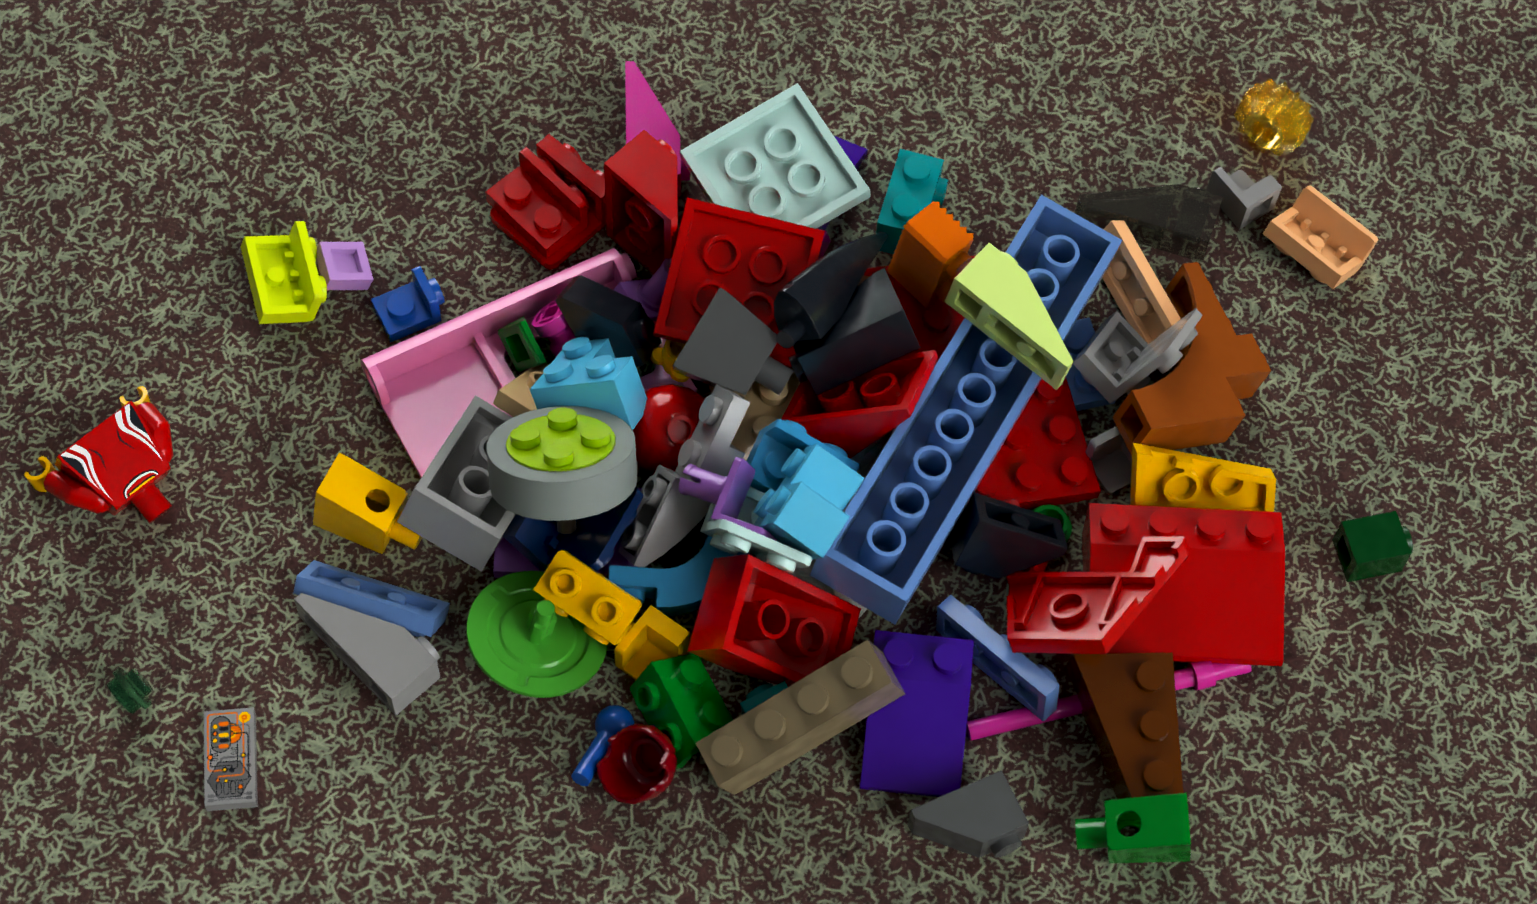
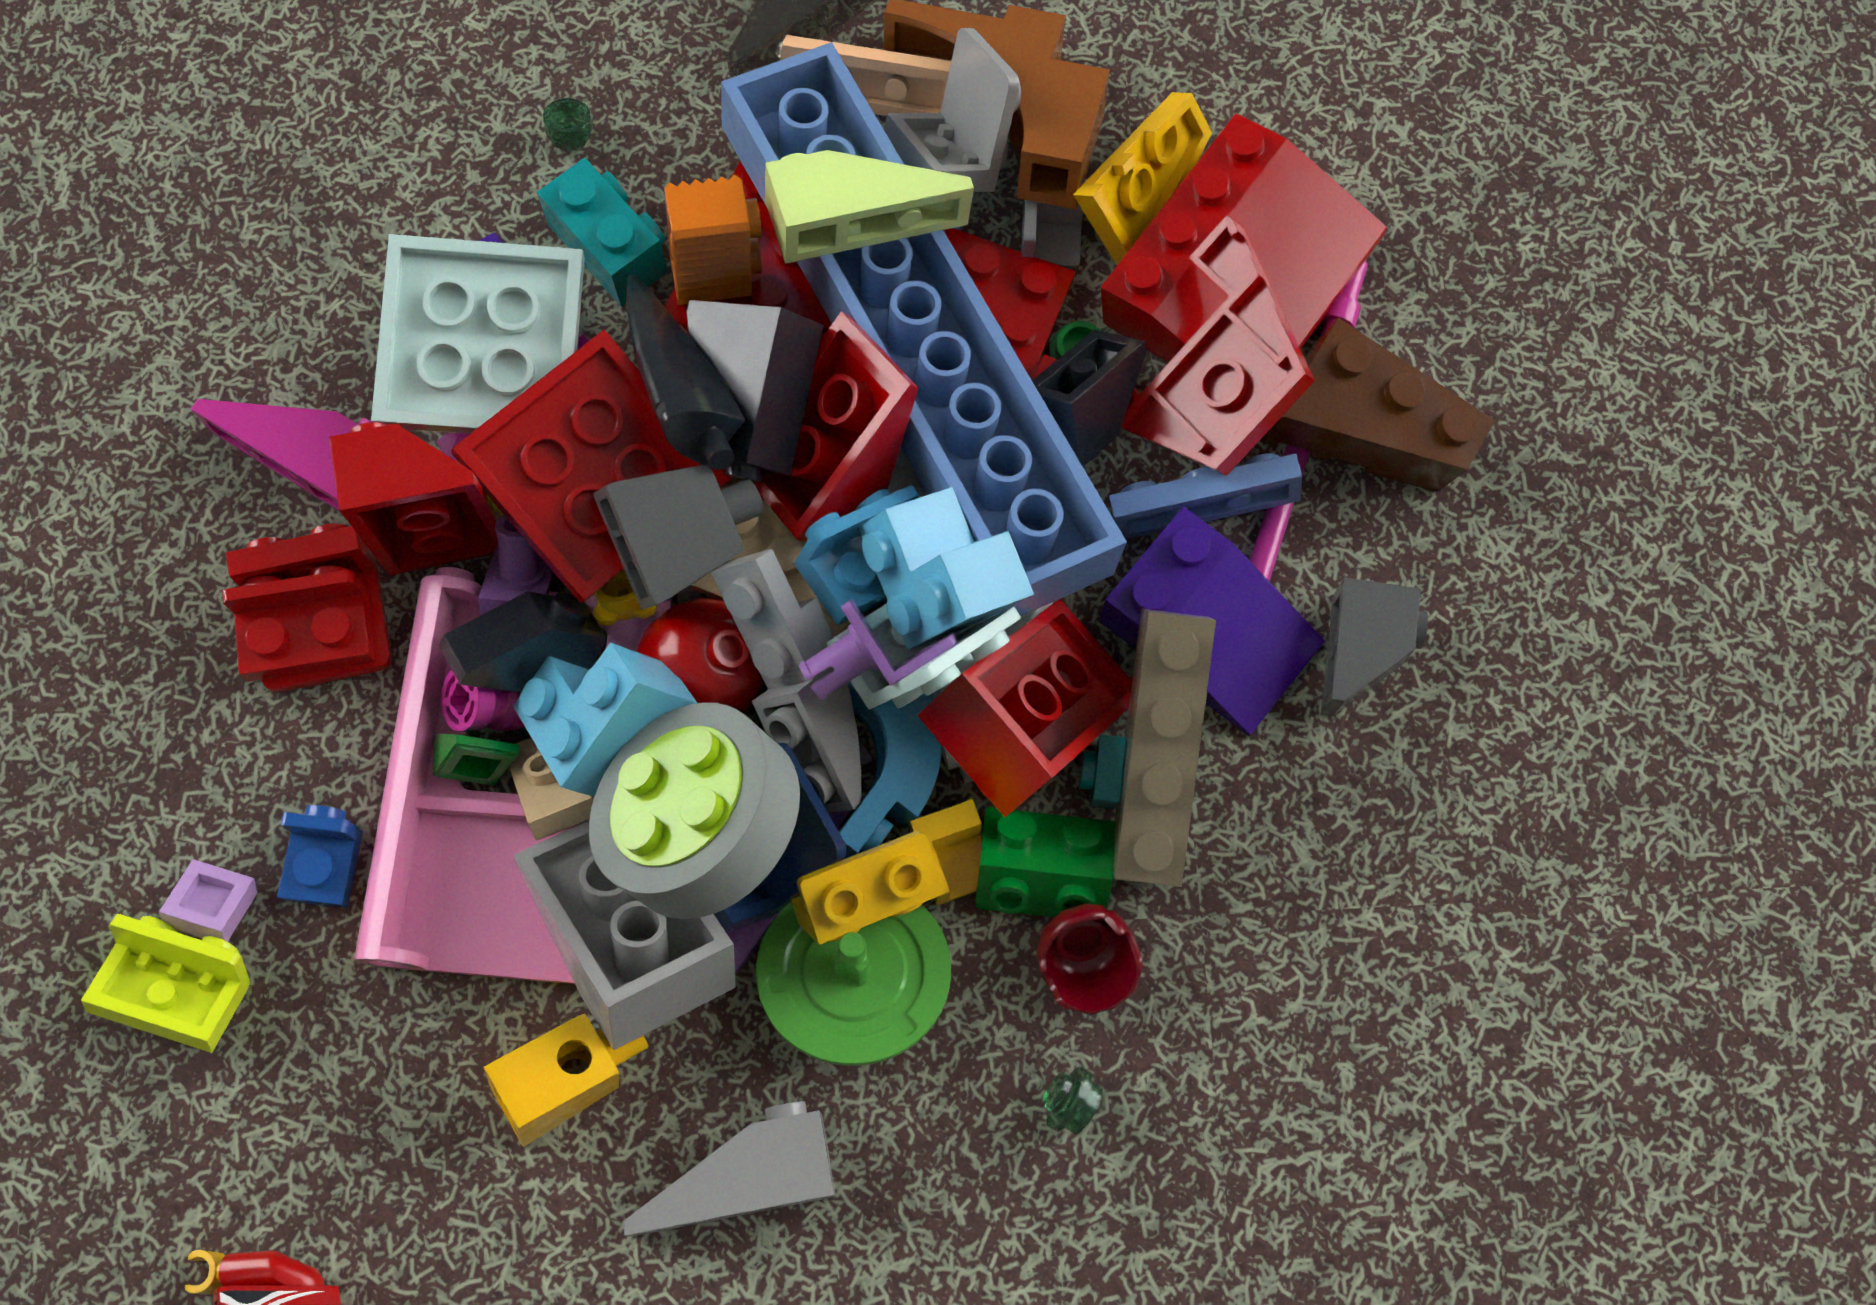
camera: 55 degrees left, 10 degrees up
(406, 608) = (674, 1138): medium blue plate -> none
(542, 811) = (1072, 1100): none -> clear green plate
(607, 723) = (1010, 954): blue bar -> none
(974, 139) = (567, 124): none -> clear green hinge
(1161, 827) = (1497, 483): green torso -> none
(1372, 546) = (1311, 61): dark green brick -> none

